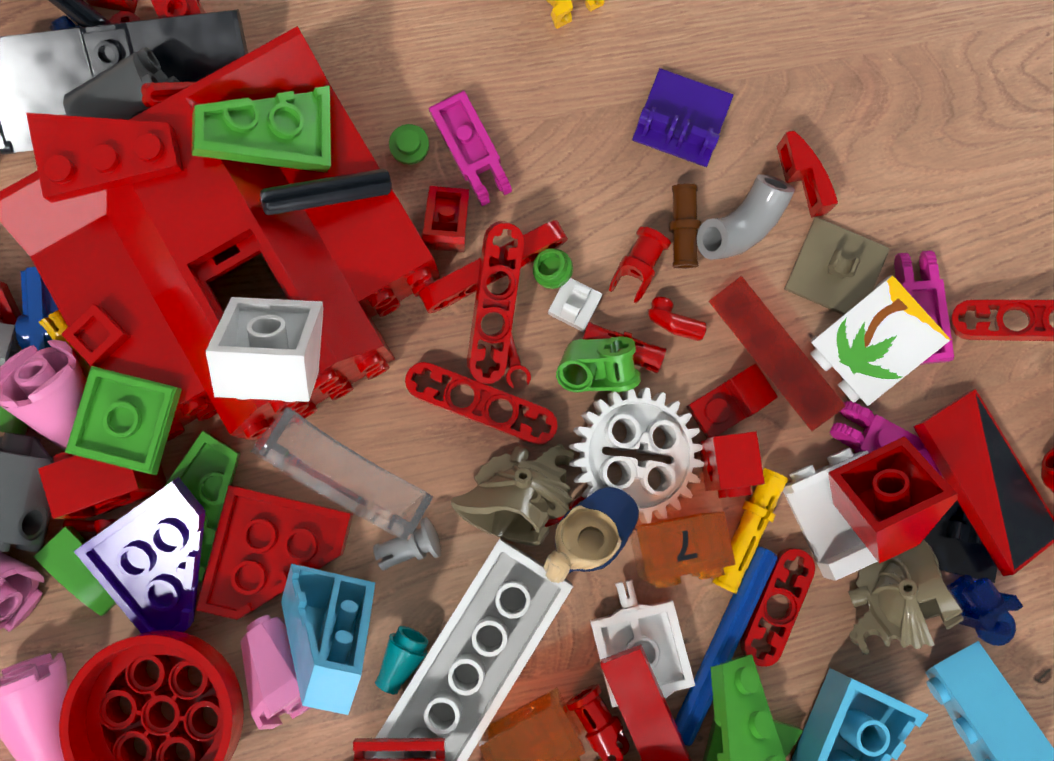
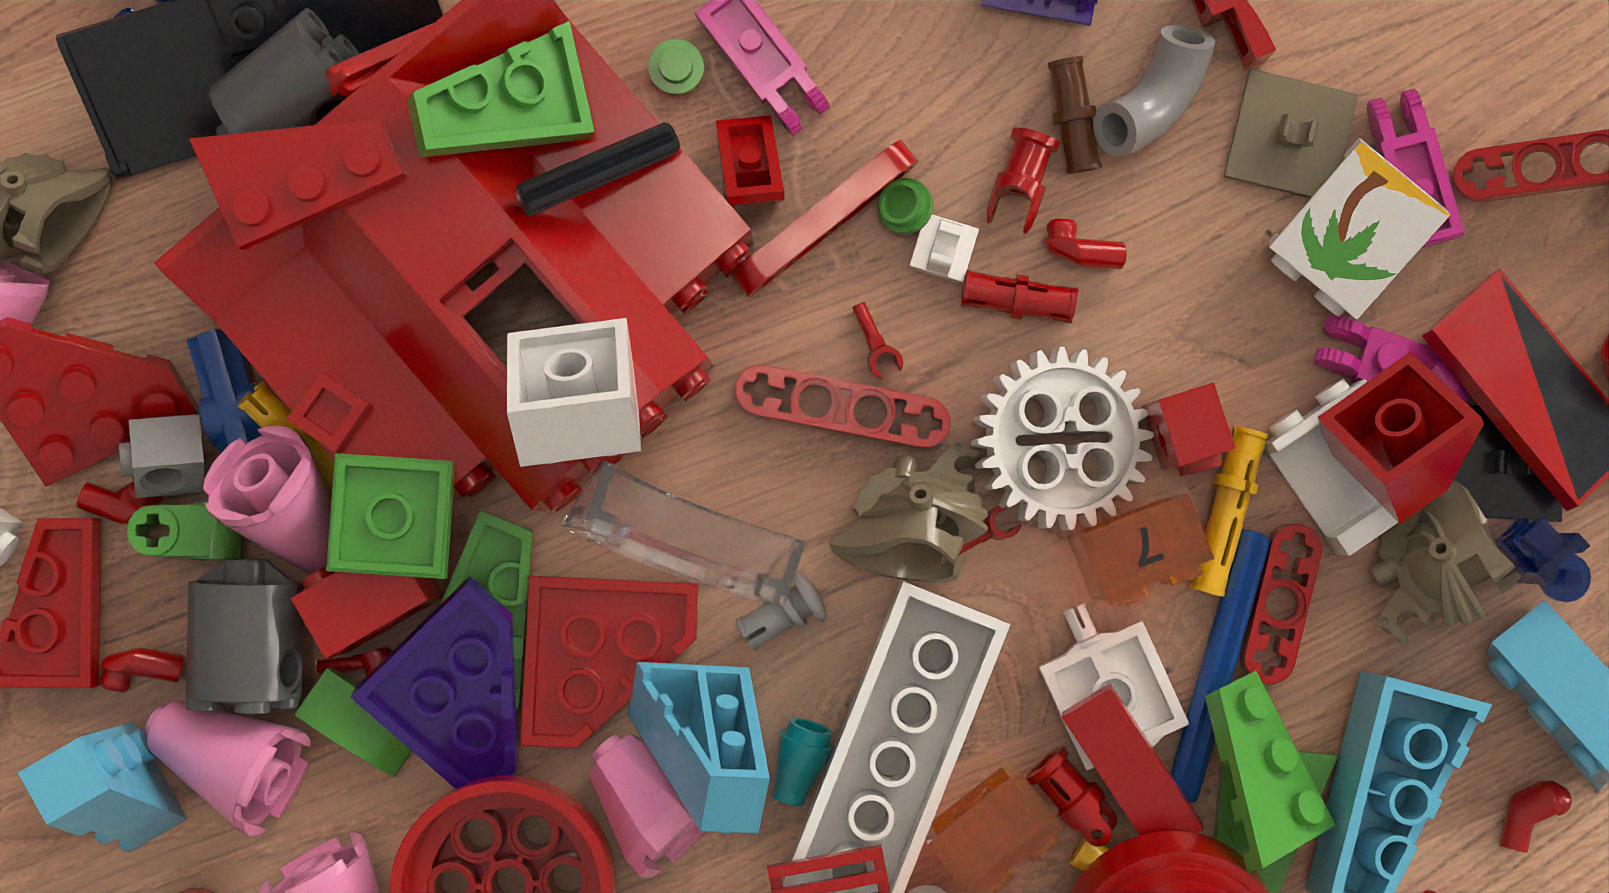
camera: 10 degrees left, 5 degrees up
(500, 303) = (830, 270): red beam -> none
(592, 533) = (1023, 551): tan hair -> none
(601, 365) = (989, 328): bright green piece -> none
(732, 401) = (1178, 343): red slope -> none
(777, 353) = (1226, 268): clear red plate -> none

